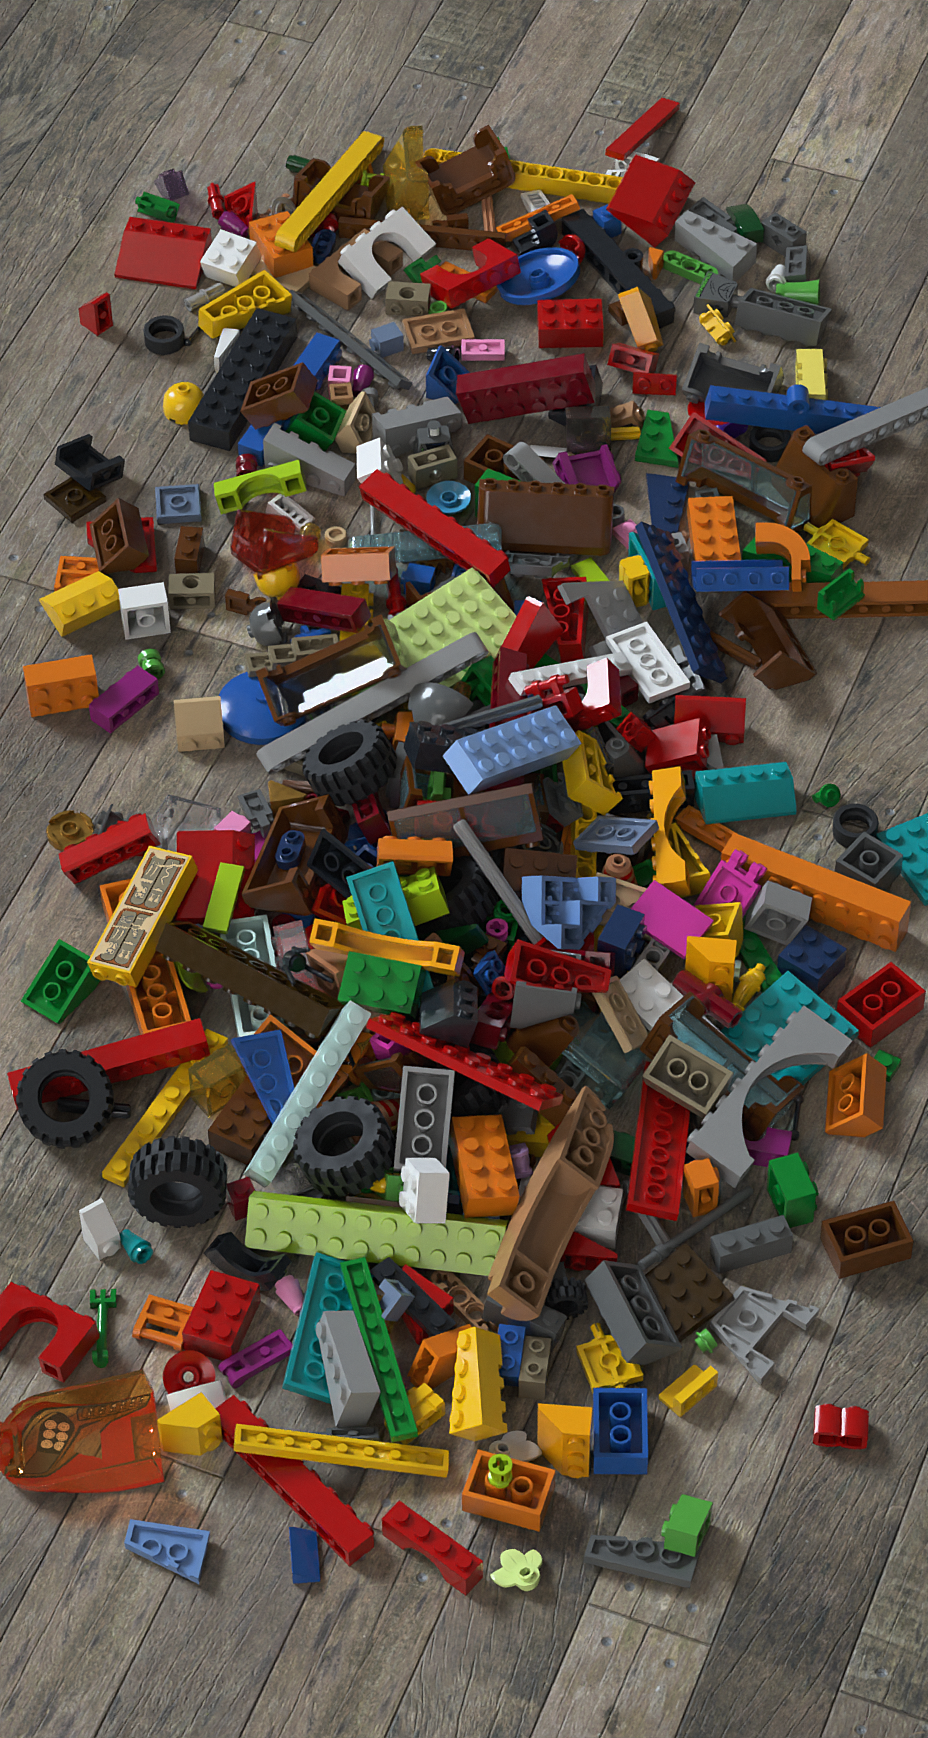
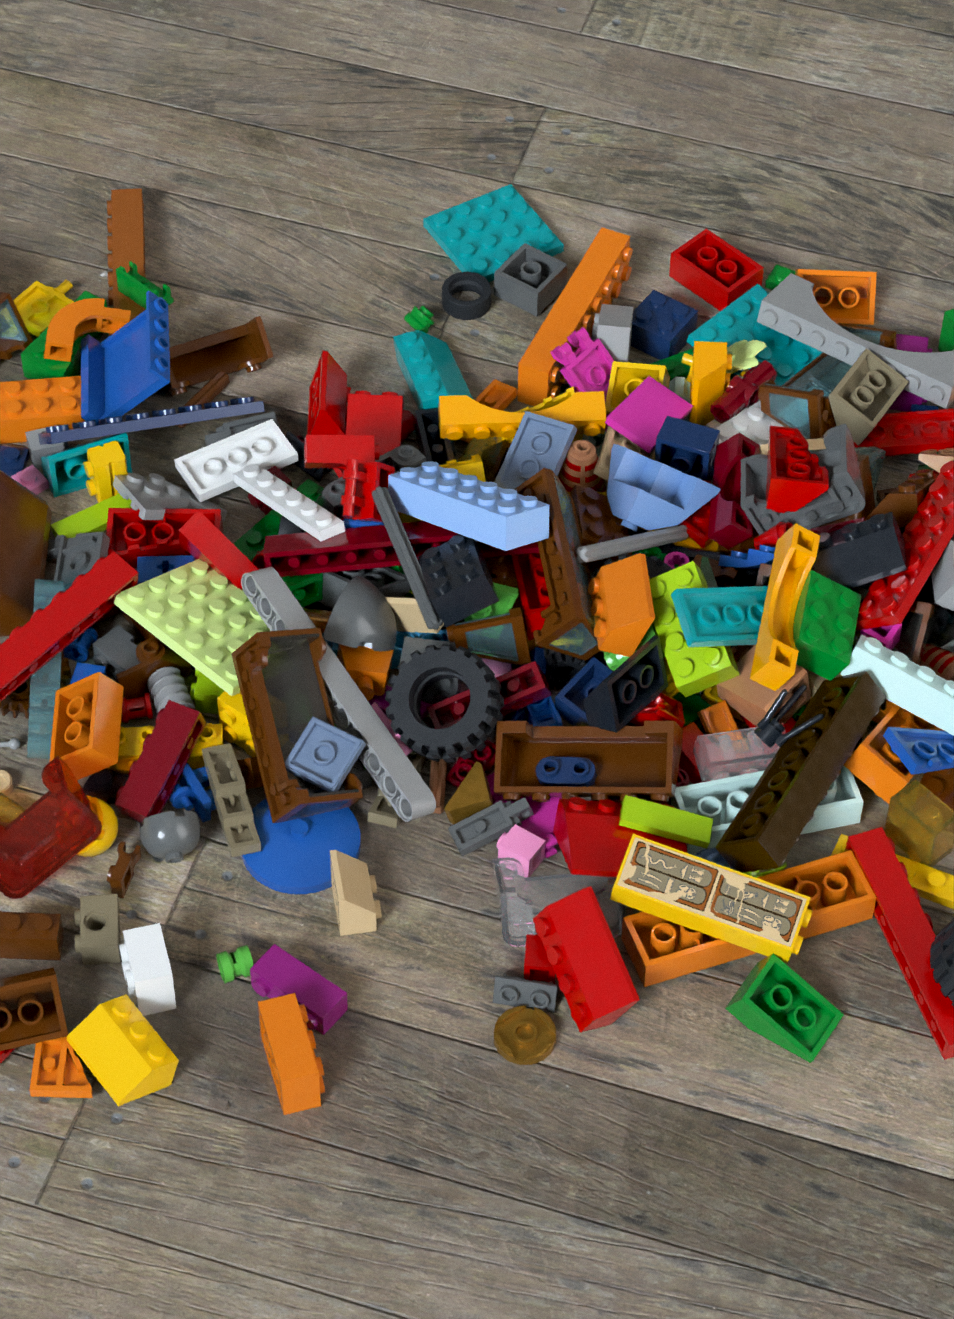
camera: 95 degrees left, 0 degrees up
(309, 693) = (324, 755): none -> sand blue tile
(749, 995) = (744, 354): none -> yellowish green plate

